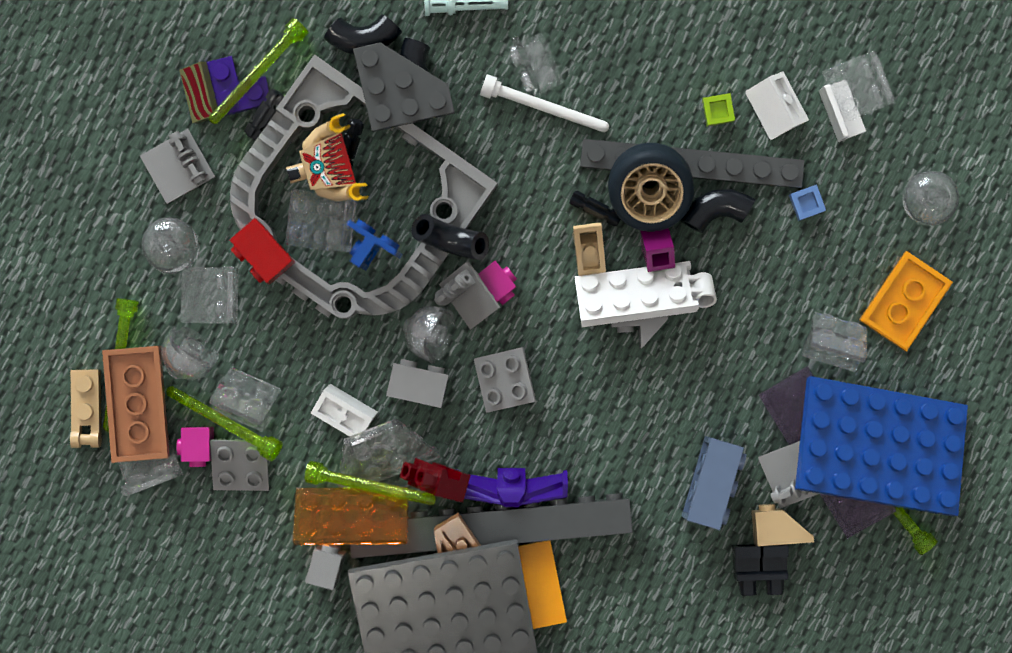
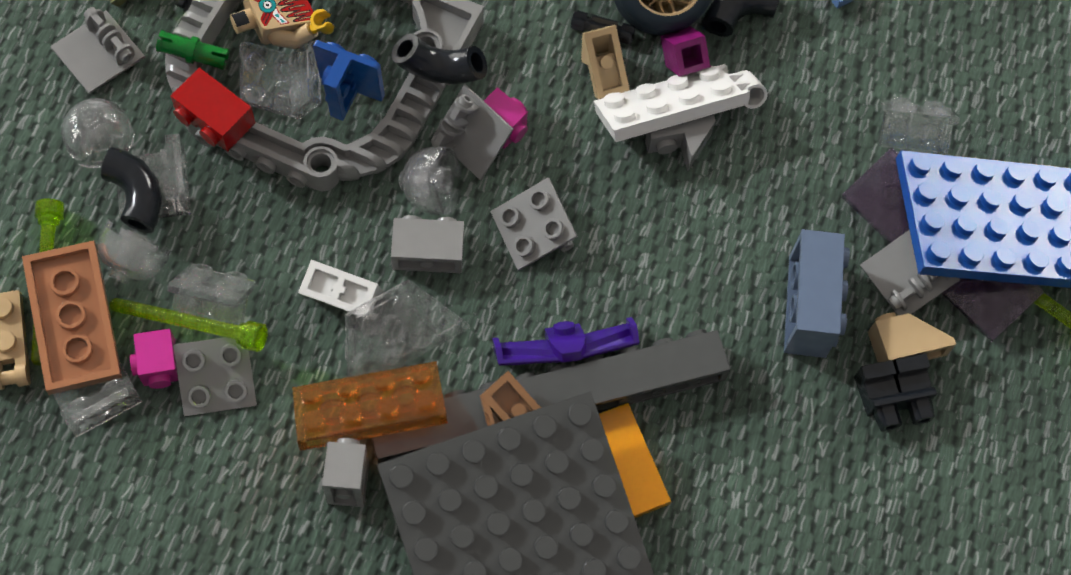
camera: 20 degrees left, 20 degrees down
(197, 301) = (140, 188): none -> black cylinder
(252, 192) = (192, 50): none -> green pin
(317, 473) = (316, 365): clear neon green piece -> none
(436, 479) = (470, 343): dark red hips -> none
(906, 301) = (982, 73): light orange tile -> none

